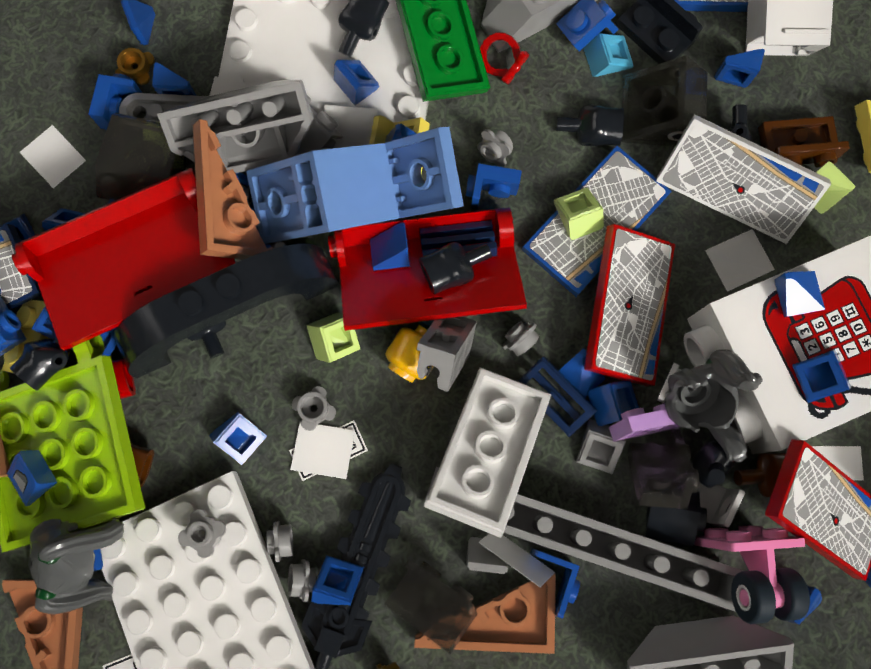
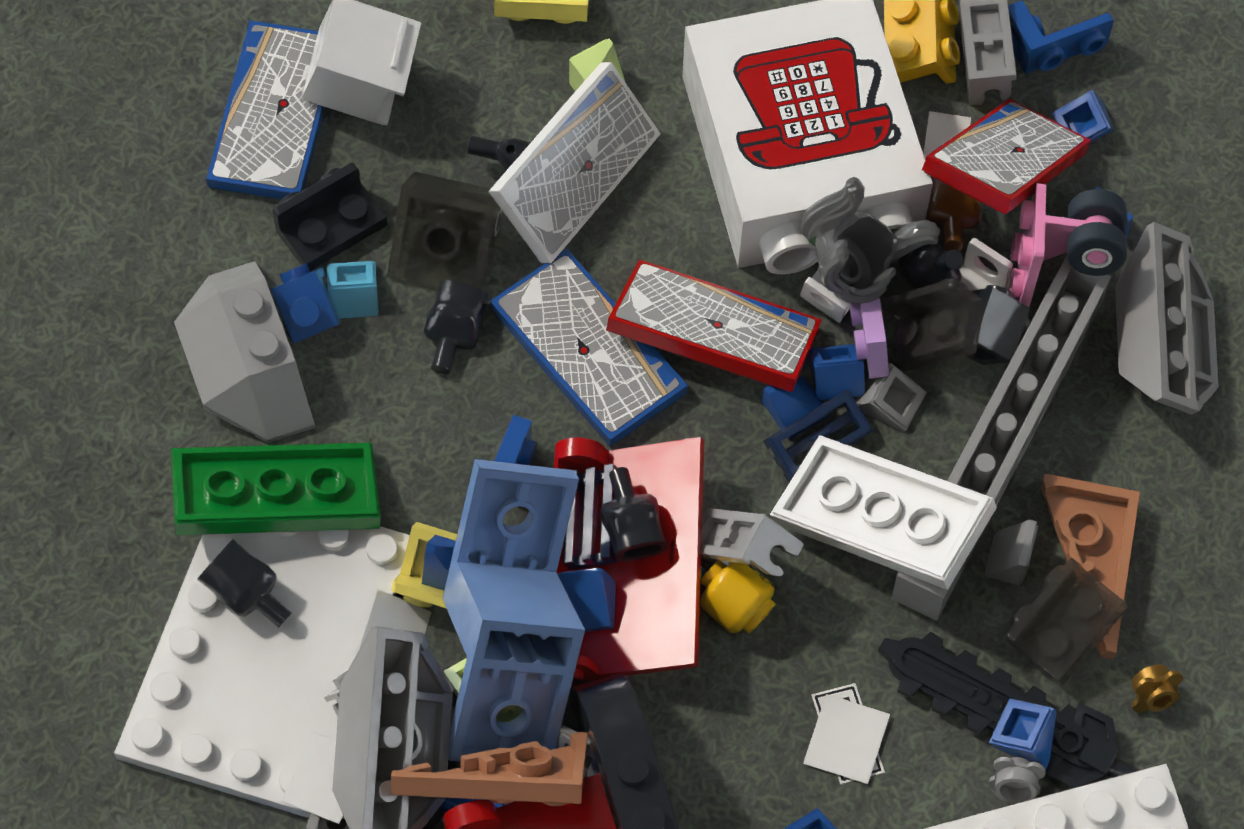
camera: 80 degrees left, 15 degrees down
(280, 541) = (962, 798): light grey plate -> none
(303, 406) = (791, 724): light grey plate -> none
(330, 338) = (695, 699): yellowish green slope -> none
(354, 80) = (330, 611): blue slope -> none
(495, 146) = (461, 447): light grey plate -> none
(517, 558) = (1018, 513): white sticker -> none
(519, 56) = (339, 393): red piece -> none
(521, 337) = (735, 463): light grey plate -> none
(569, 585) = (1053, 461): blue bracket -> none
(580, 213) = (578, 360): yellowish green slope -> none
(739, 260) = (670, 192): white sticker -> none
(740, 68) = (416, 131): blue slope -> none
(799, 293) = (749, 124): slope -> none
(803, 140) = (529, 86): reddish brown bracket -> none
(821, 376) = (852, 122): blue slope -> none

